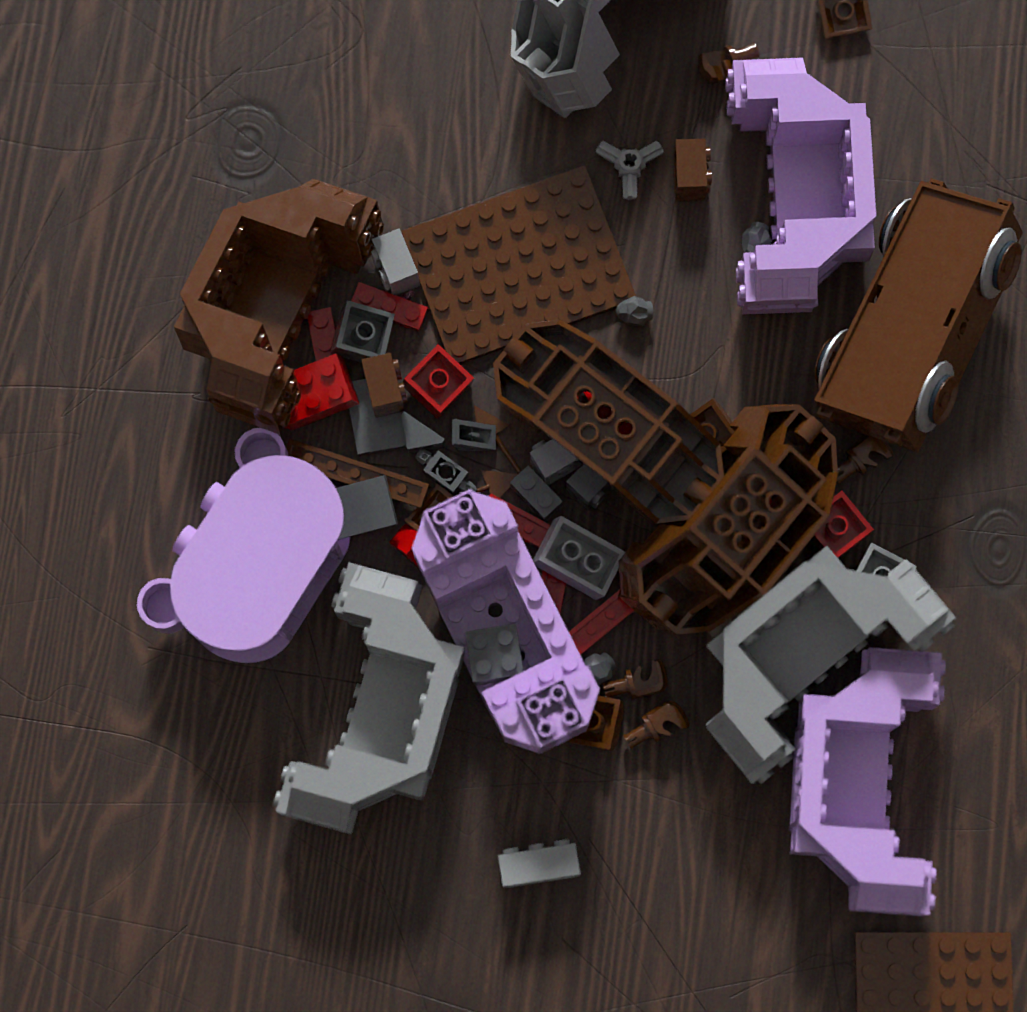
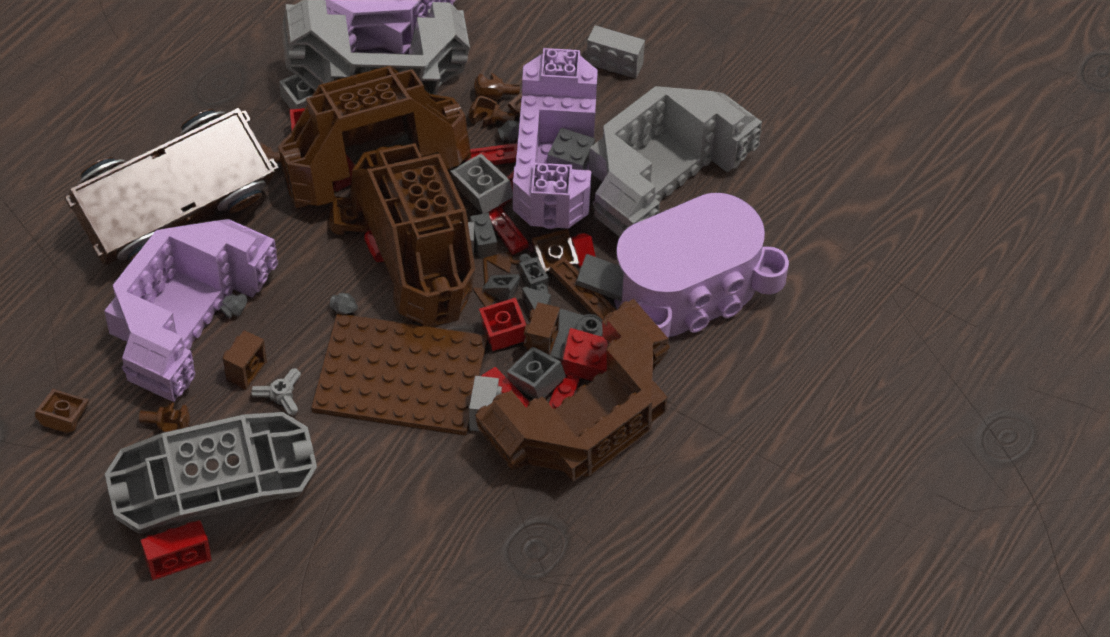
camera: 155 degrees left, 25 degrees down
(340, 436) = (590, 324): none -> dark grey plate

